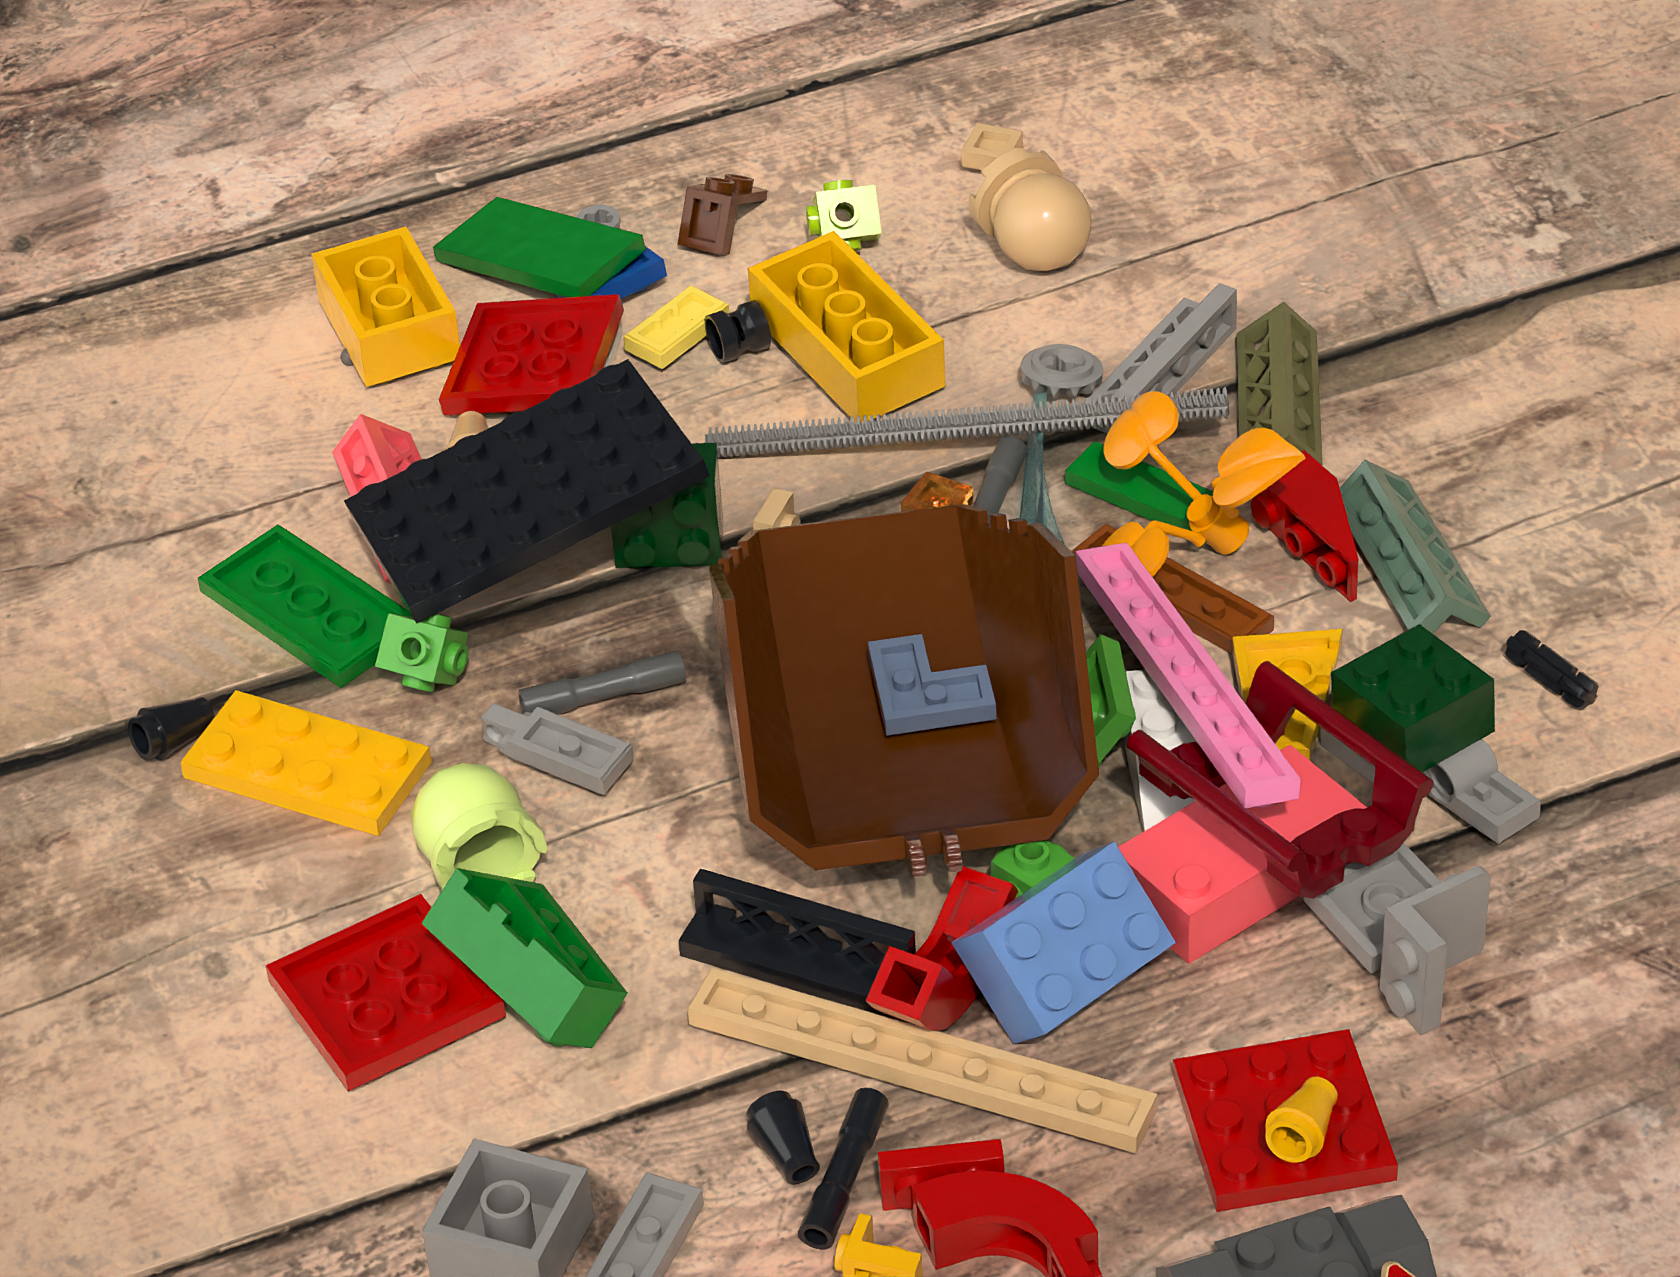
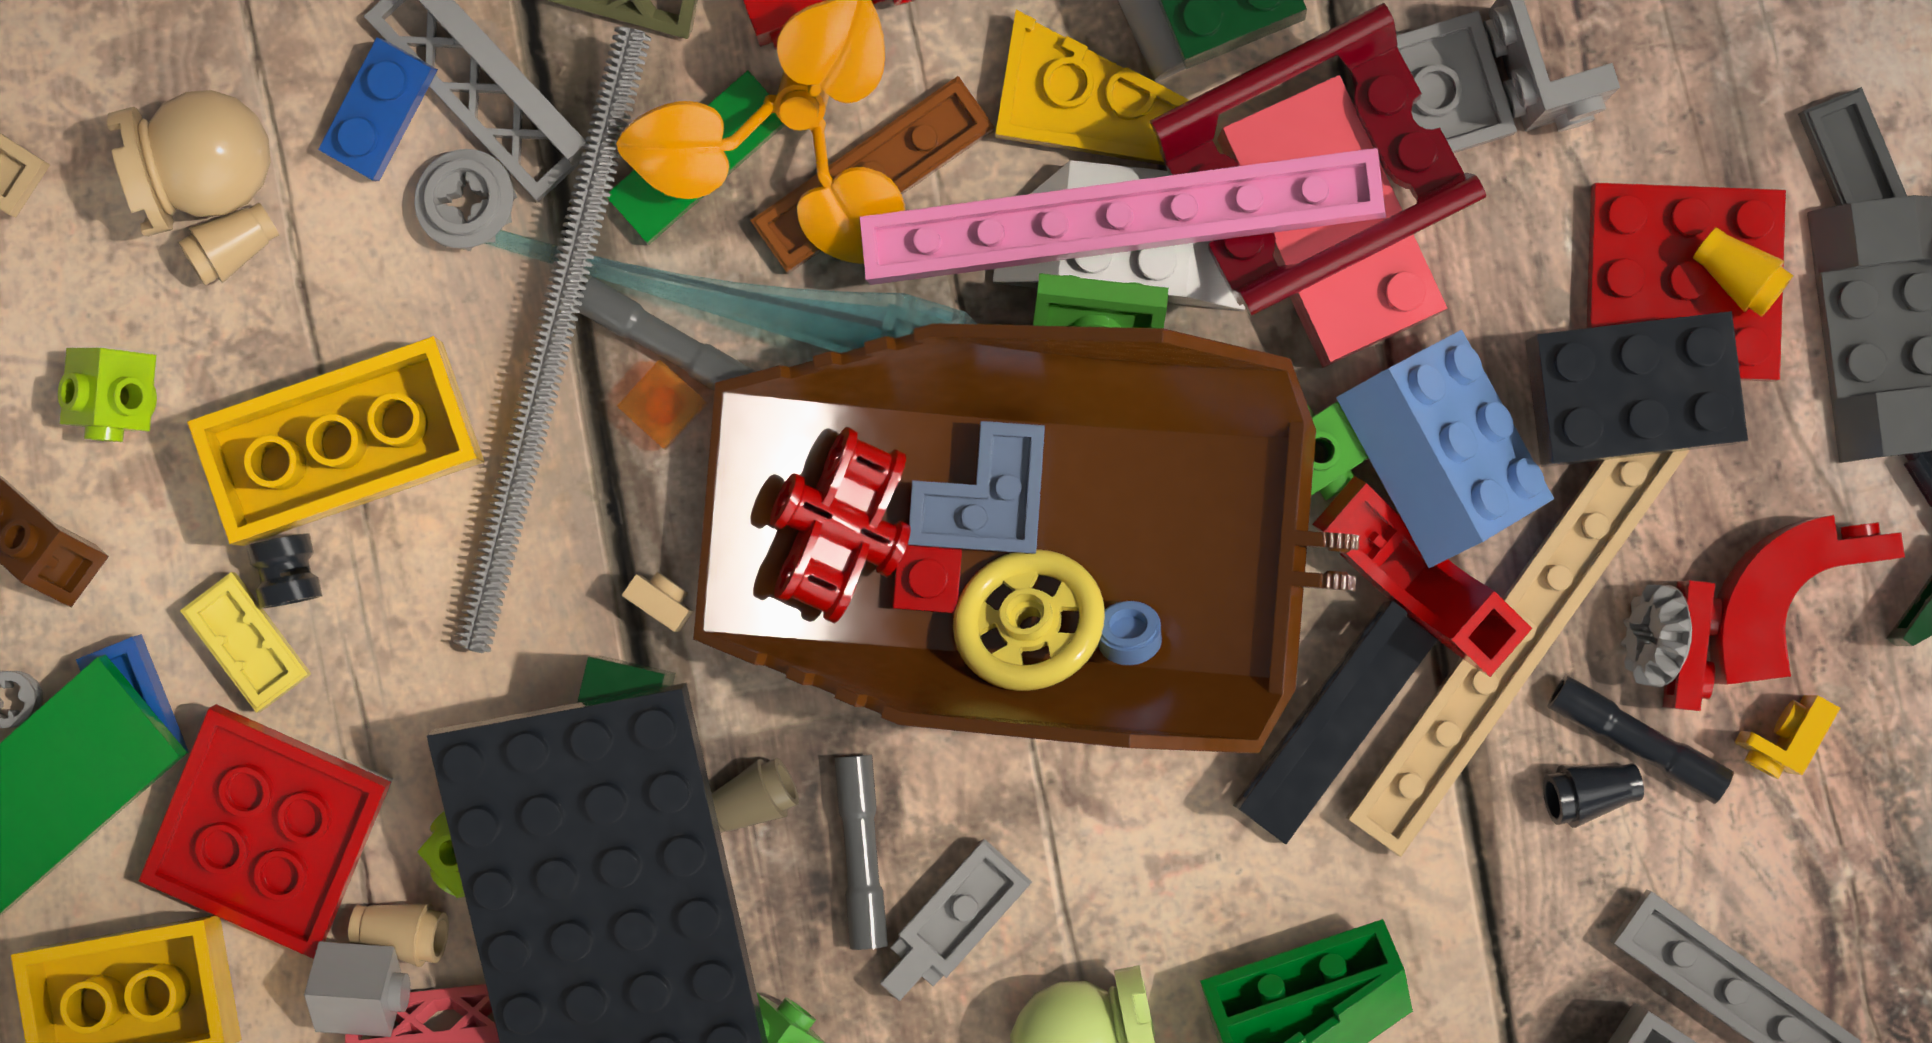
camera: 80 degrees left, 45 degrees up
(419, 416) = (356, 989): none -> light grey brick
(631, 611) = (755, 796): none -> dark tan cone
(826, 723) = (1019, 573): none -> light yellow plate
(834, 780) = (1130, 633): none -> medium blue tile
(843, 674) = (928, 579): none -> red plate
(851, 589) = (840, 525): none -> red axle
(942, 1129) = (1662, 615): none -> light grey gear
(979, 259) = (227, 243): none -> tan cone
(1114, 315) = (377, 109): none -> blue plate
(1163, 1056) = (1636, 389): none -> black brick
(1463, 1213) = (1851, 149): none -> dark grey tile

